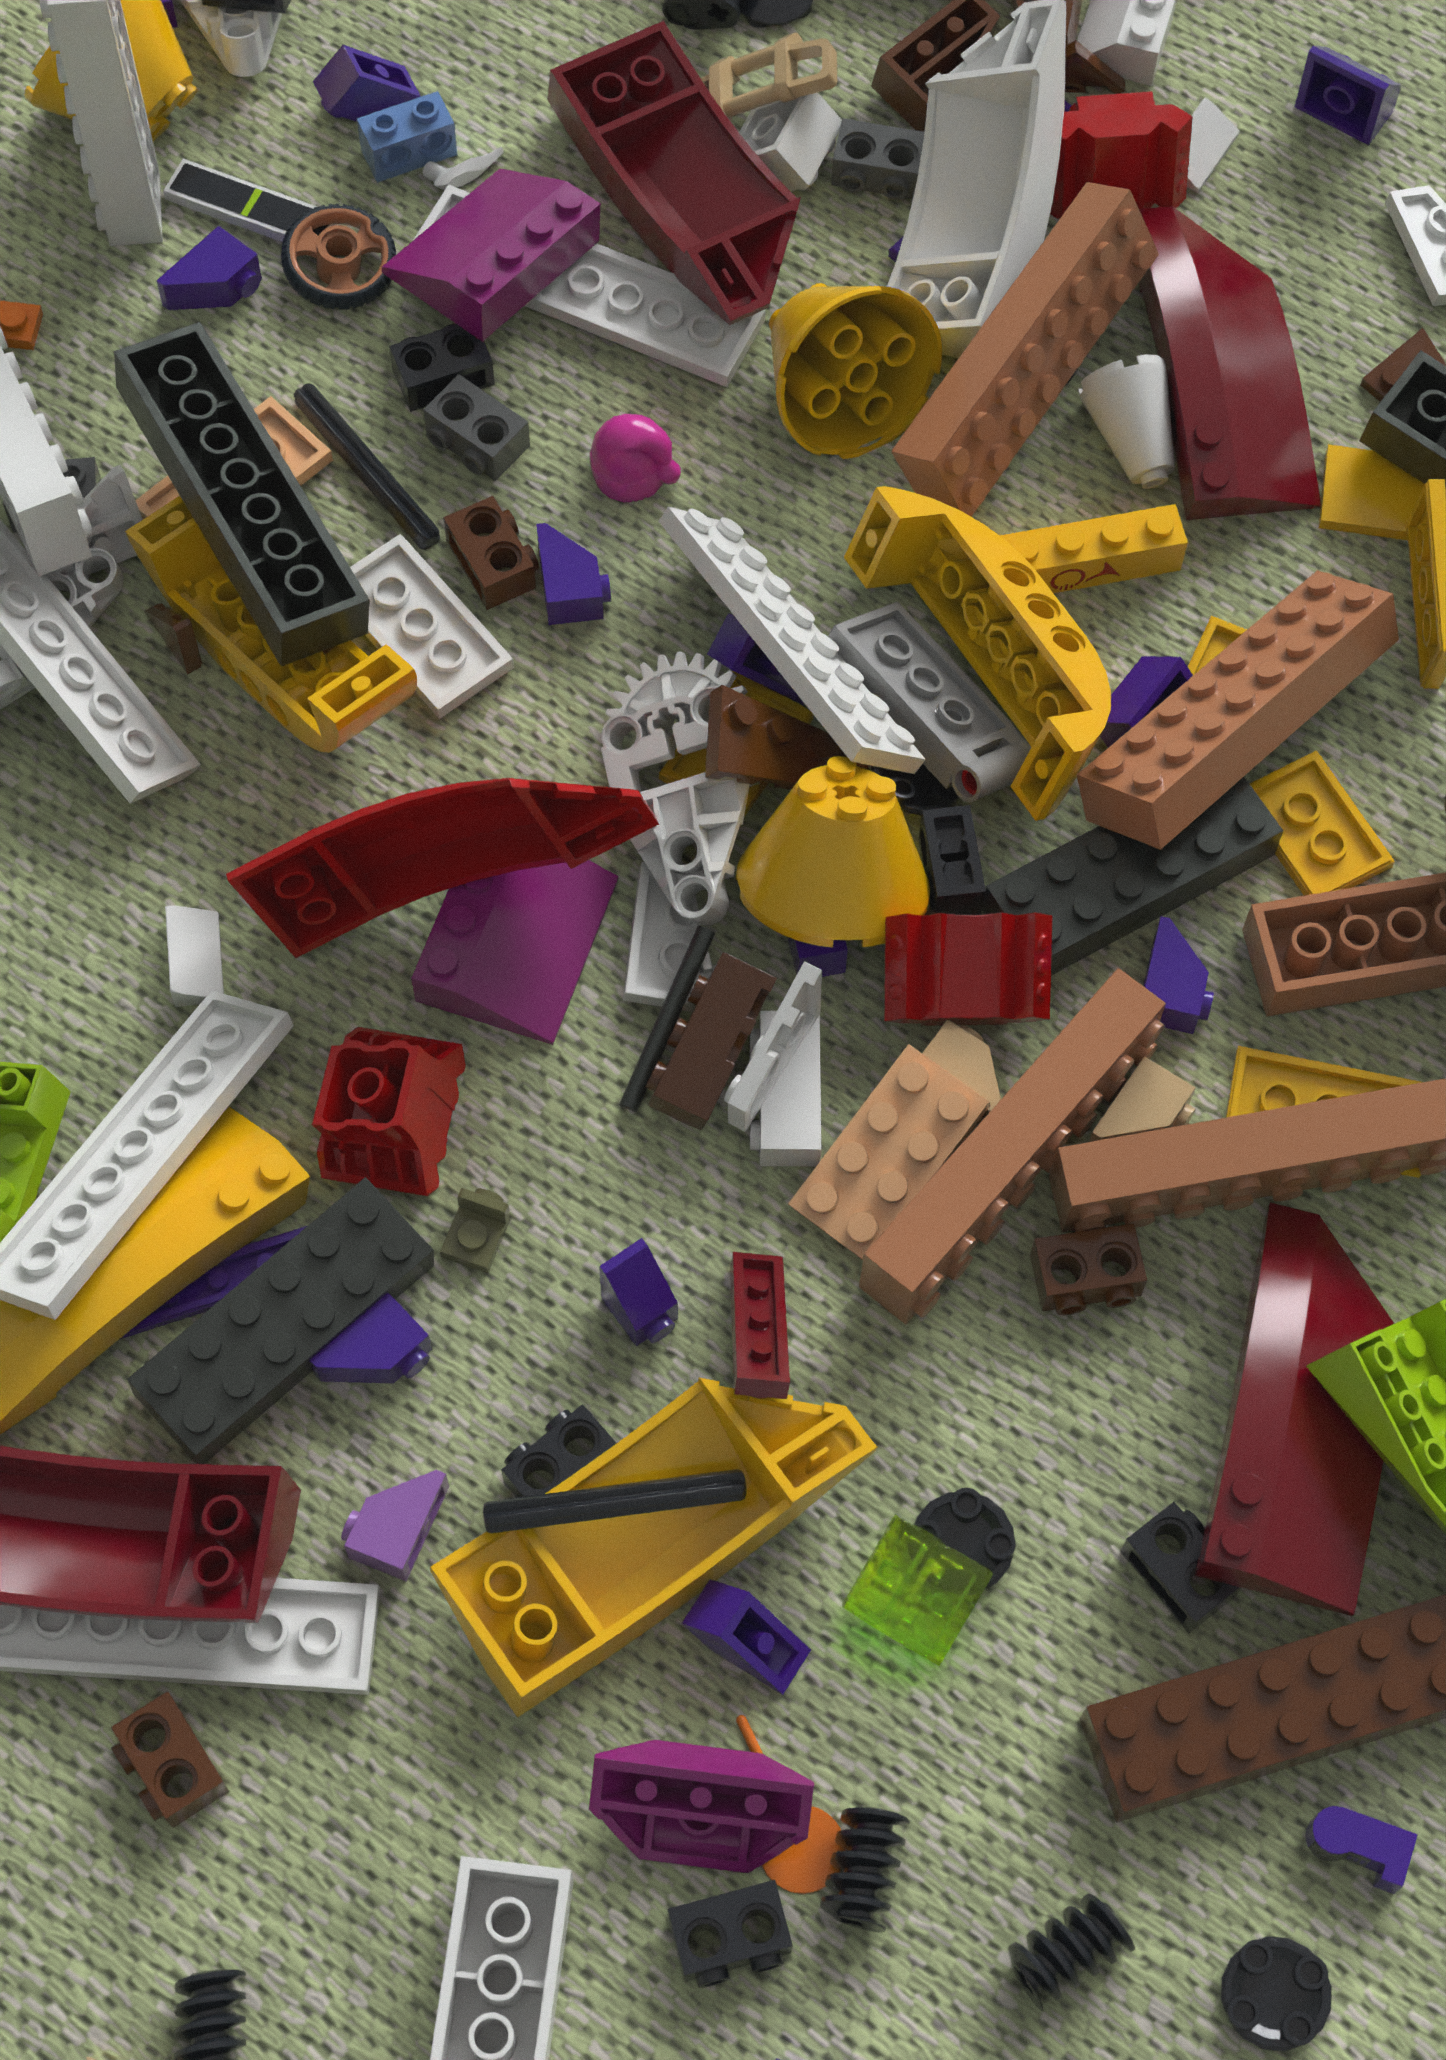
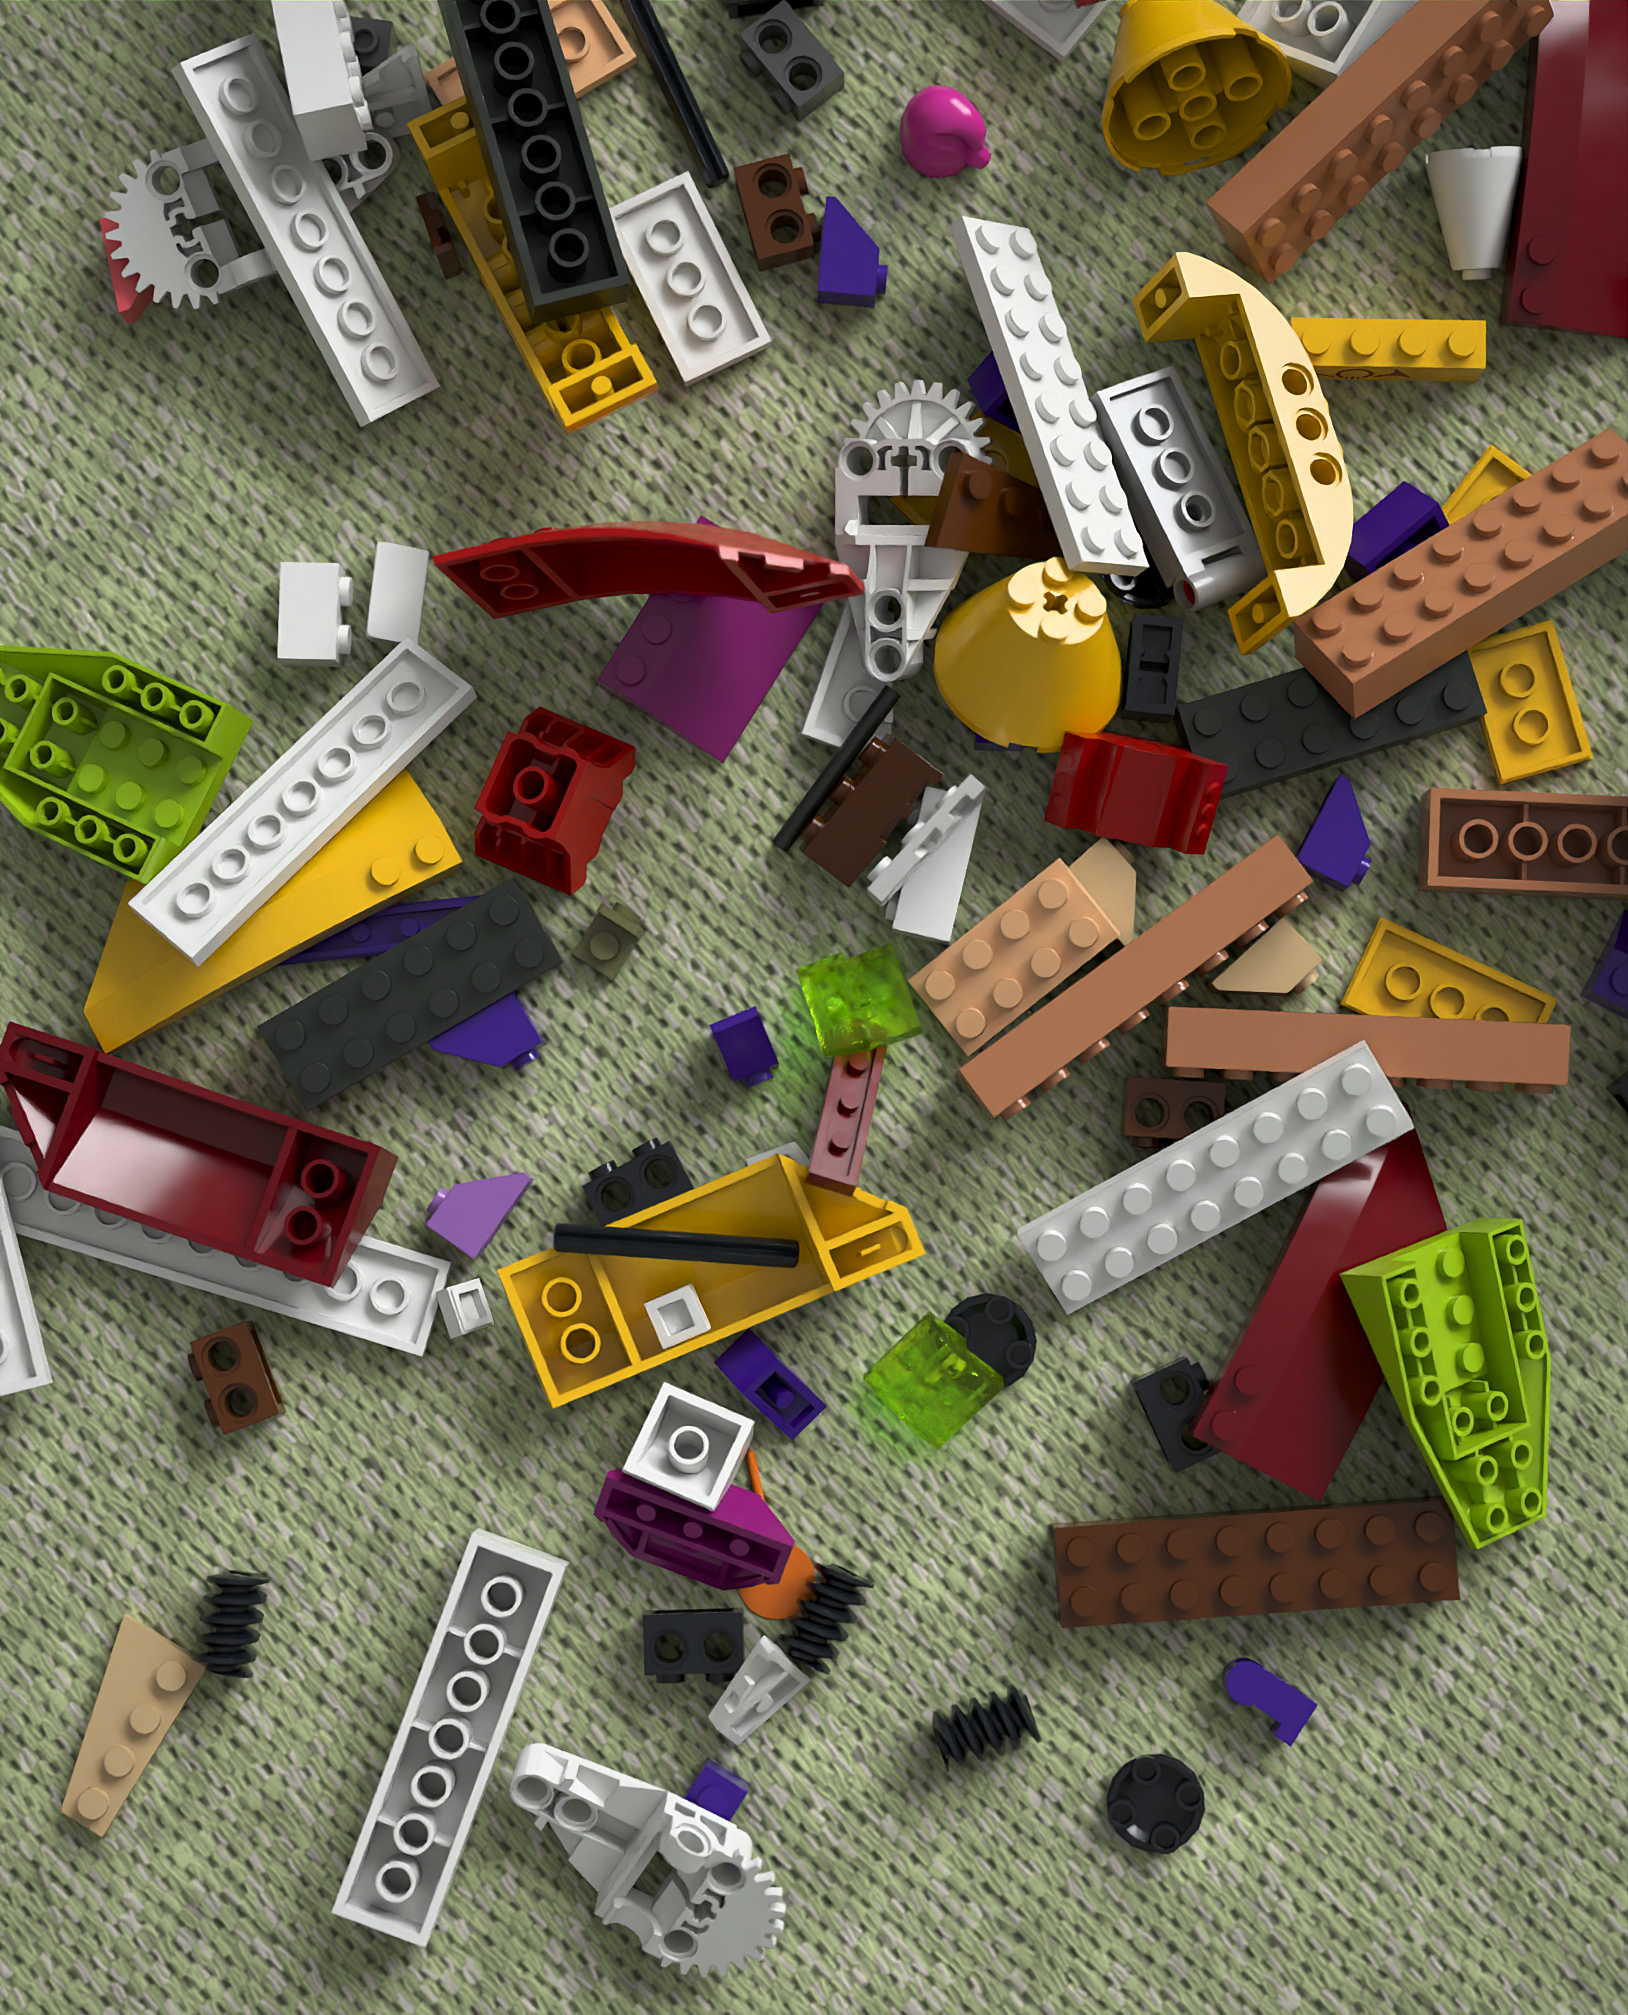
camera: 20 degrees right, 20 degrees up
(112, 987) = (313, 614): none -> white brick
(403, 1630) = (464, 1308): none -> white tile
(631, 1578) = (677, 1316): none -> white plate
(678, 1708) = (690, 1447): none -> white slope
(745, 1230) = (859, 1001): none -> clear neon green slope
(812, 1966) = (757, 1691): none -> white wing
(1149, 1312) = (1216, 1177): none -> white plate

